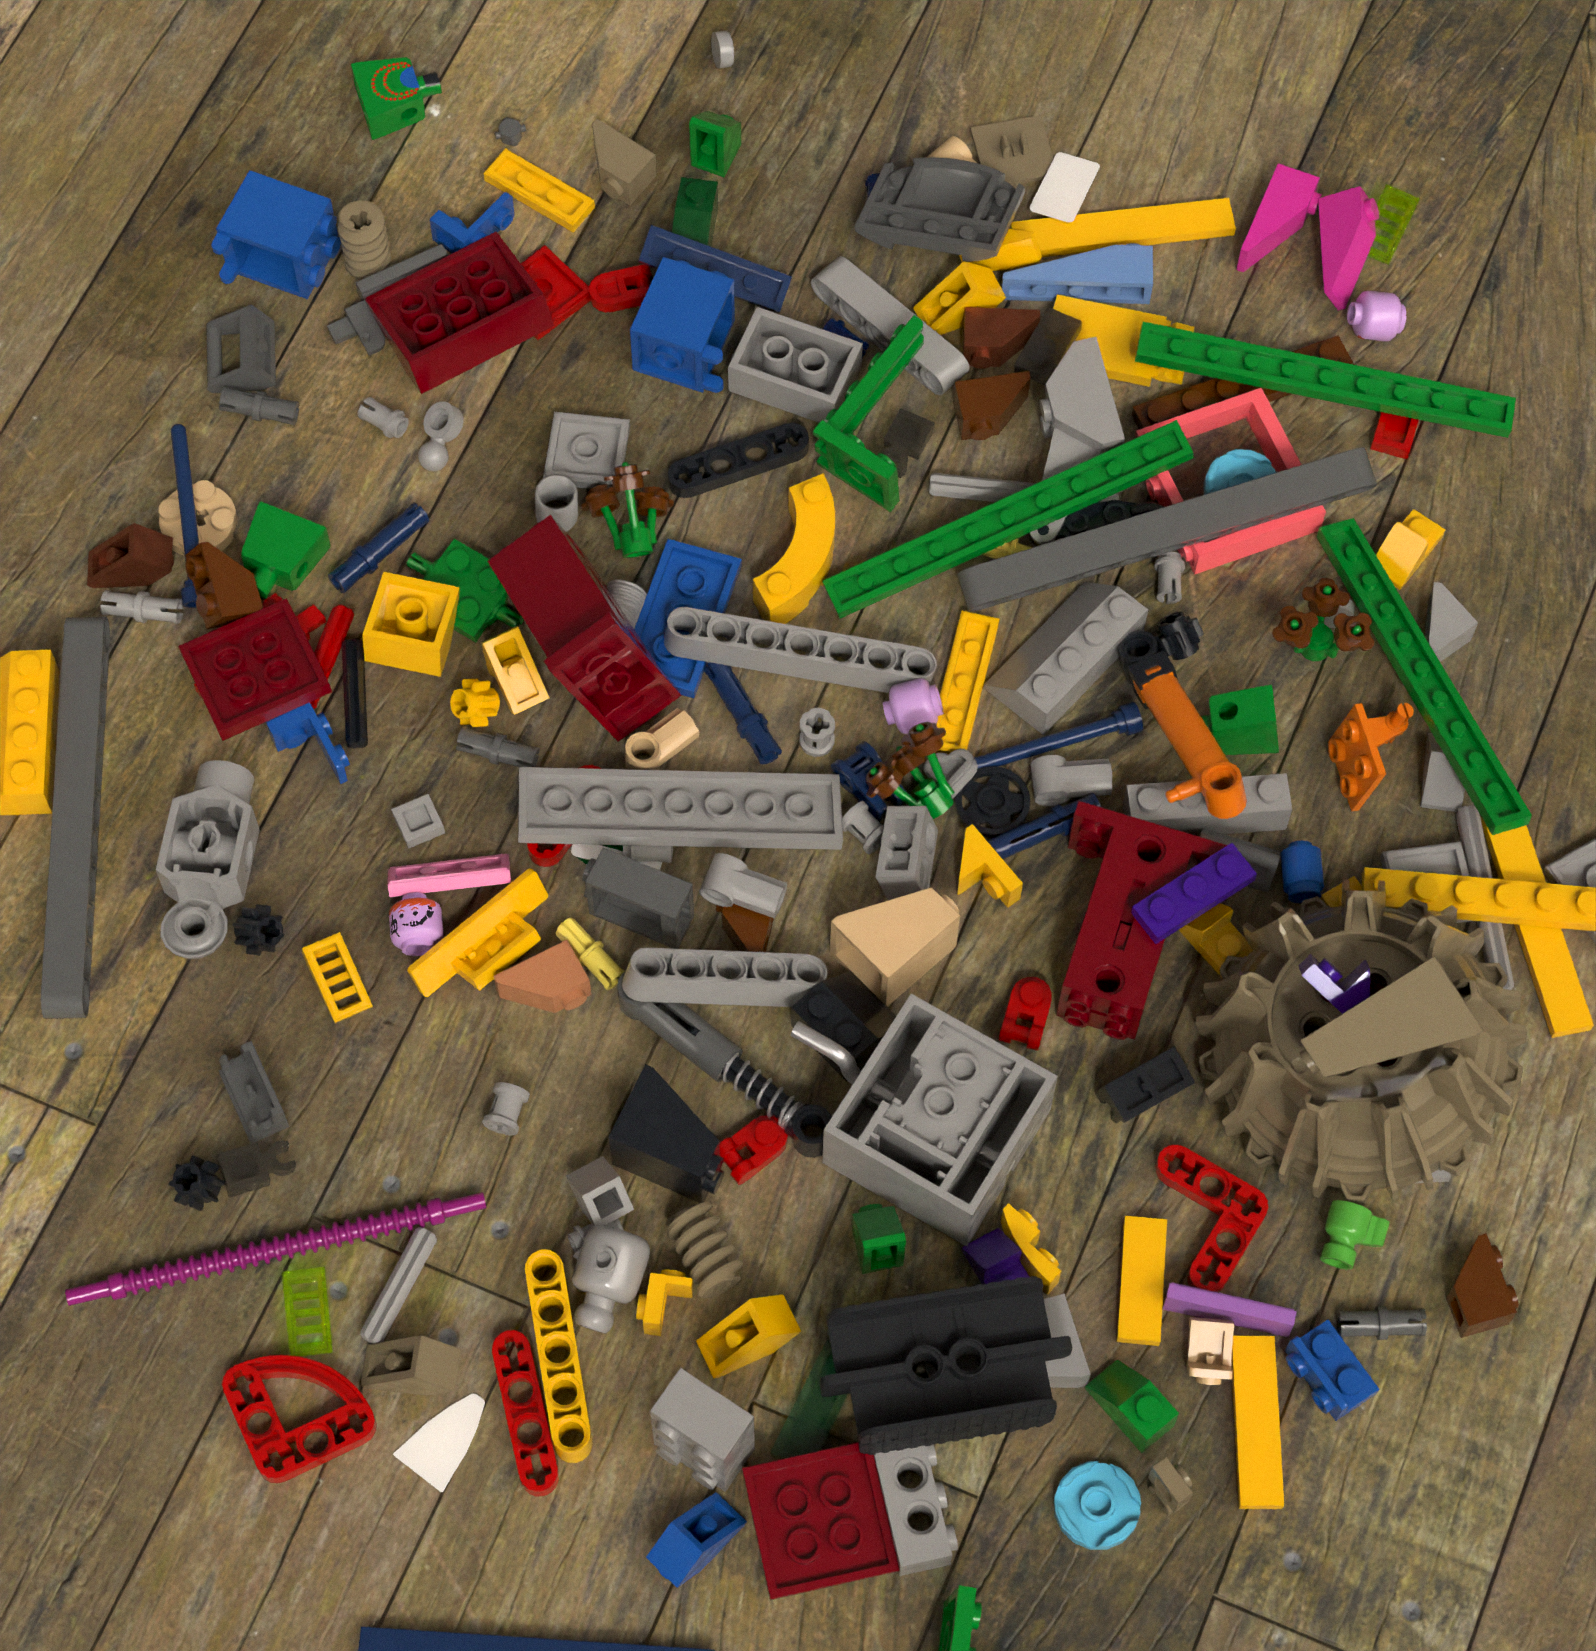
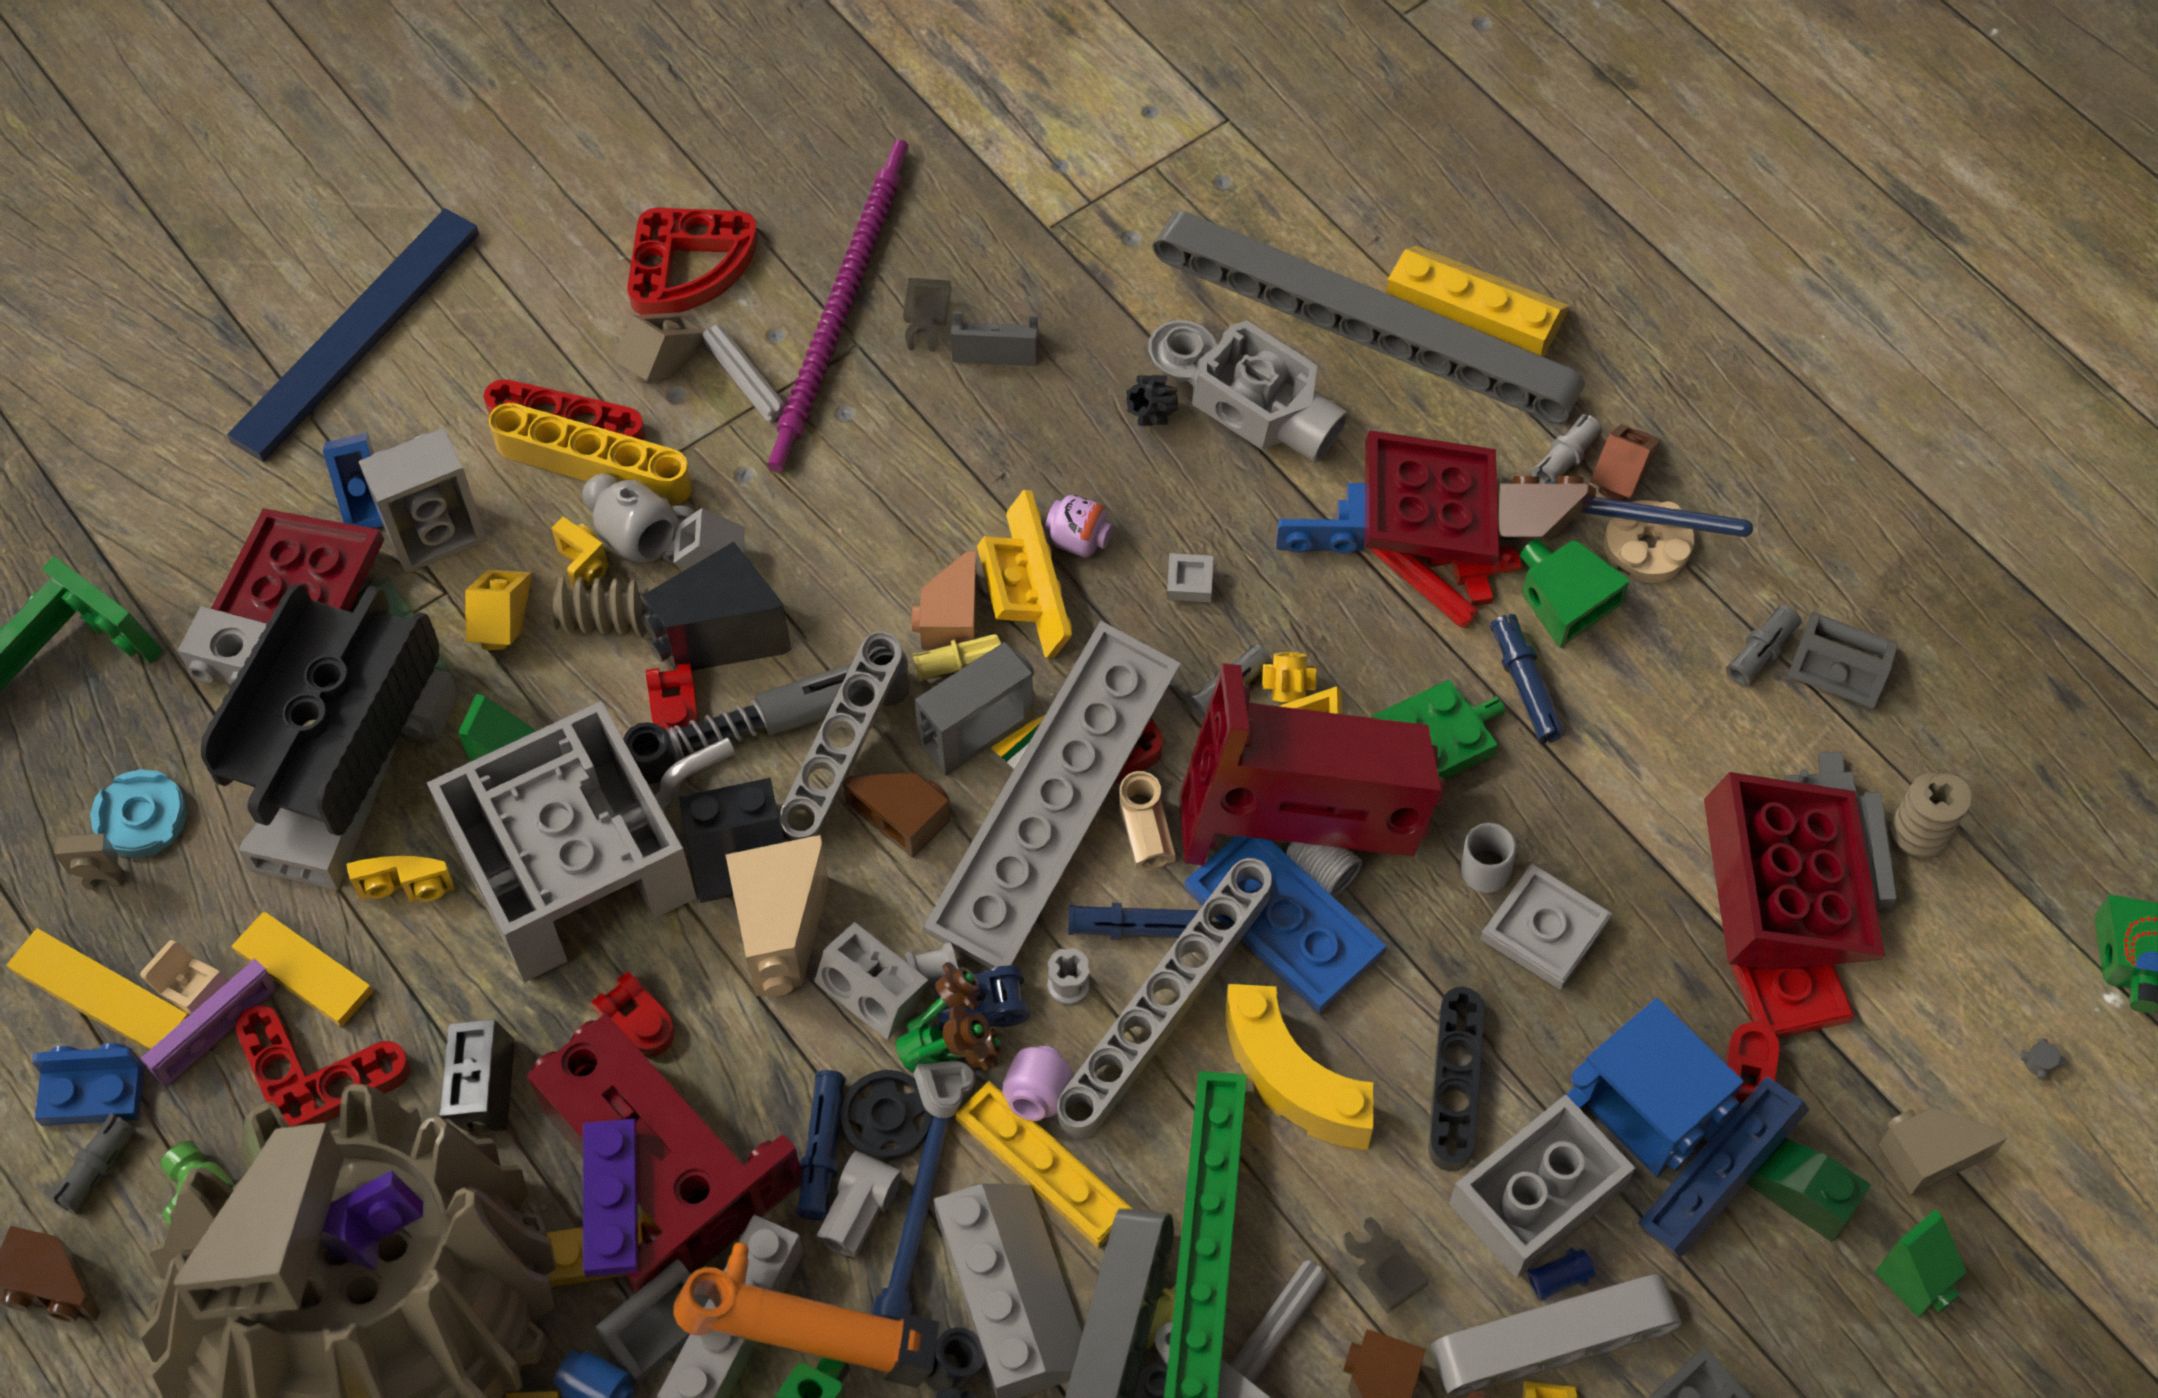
camera: 120 degrees right, 5 degrees down
(196, 1183) = (936, 258): black gear -> none
(277, 235) = (1978, 727): blue container -> none
(302, 1277) = (792, 314): clear neon green slope -> none
(325, 947) = (1087, 461): yellow slope -> none
(354, 693) = (1368, 589): black axle -> none
(389, 421) = (1680, 756): light grey pin -> none
(411, 624) = (1409, 653): yellow slope -> none
(443, 425) = (1649, 800): light grey plate -> none
(443, 1441) = (588, 352): white sticker -> none
(449, 875) = (1114, 573): bright pink tile -> none
(454, 234) = (1900, 929): blue bracket -> none
(505, 1108) = (847, 518): light grey bush -> none
(539, 190) = (1940, 1051): yellow tile -> none
(651, 502) = (1459, 908): plant -> none
(722, 49) = (2070, 1356): light grey tile -> none
(733, 883) = (929, 783): light grey piece -> none
(845, 453) = (1378, 1176): green bracket -> none
(983, 862) = (798, 1064): yellow slope -> none
(995, 1258) = (407, 837): dark purple slope -> none
(1133, 1404) = (192, 885): green slope -> none

